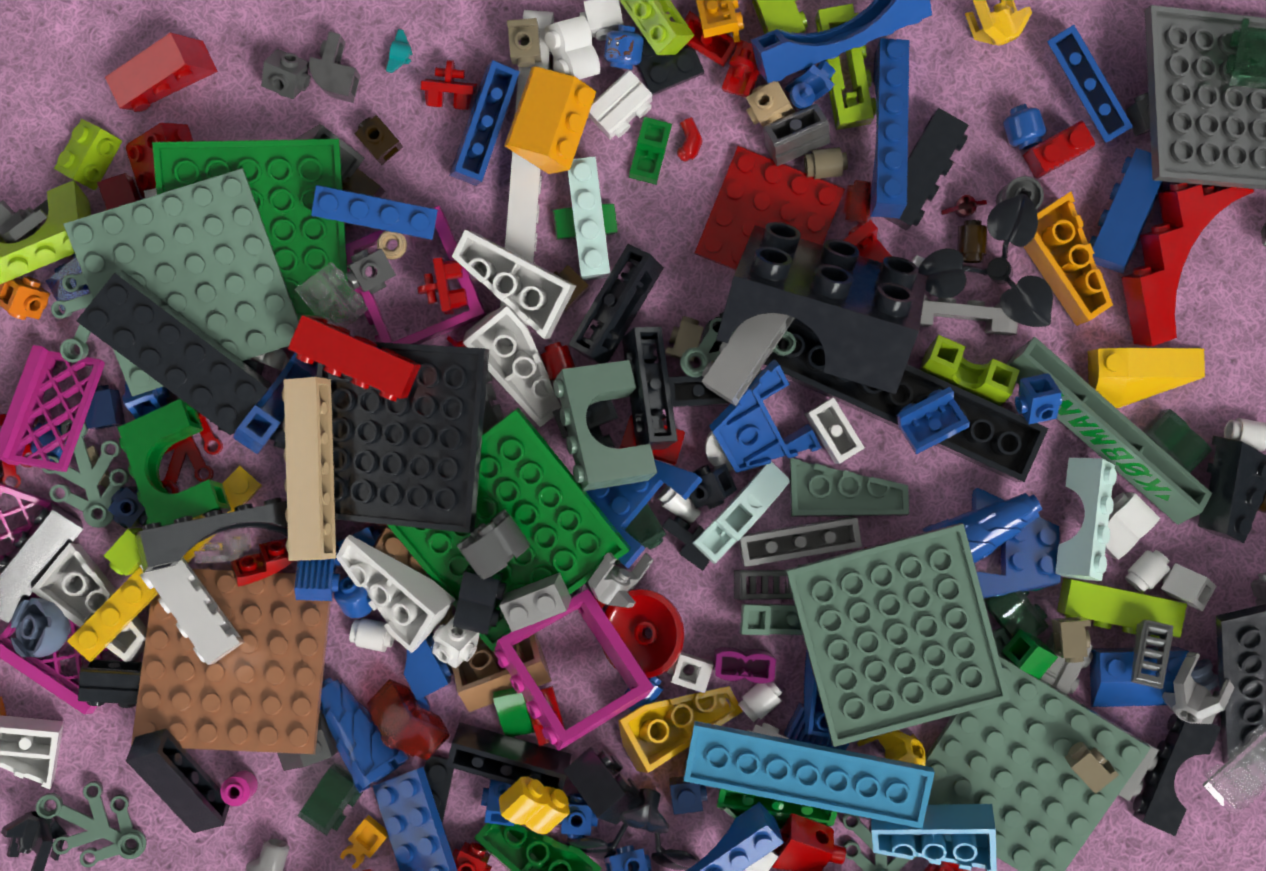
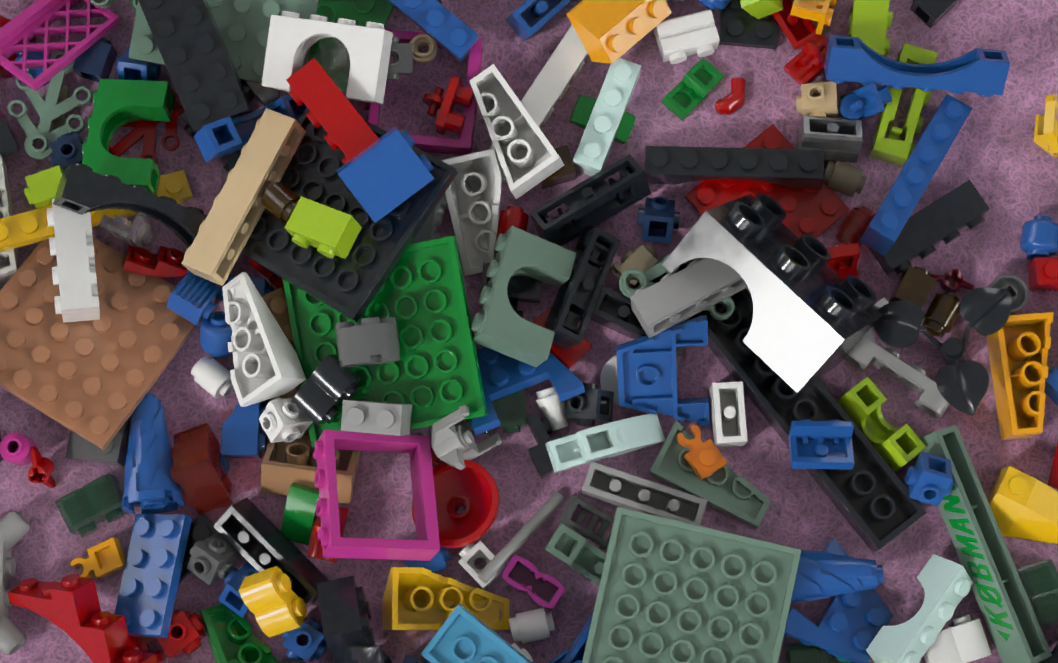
camera: 25 degrees right, 10 degrees down
(268, 794) = (41, 469): none -> red piece
(342, 276) = (367, 46): none -> white arch
(348, 458) = (279, 200): none -> dark brown brick
(397, 464) = (322, 228): none -> lime brick
(427, 389) = (386, 173): none -> blue brick
(460, 793) = (212, 558): none -> dark grey brick
(683, 289) = (658, 219): none -> dark blue brick
(713, 632) = (521, 537): none -> light grey bar
(740, 197) = (778, 166): none -> black arch
(831, 479) = (703, 457): none -> orange plate
(936, 232) = (913, 286): none -> dark brown brick

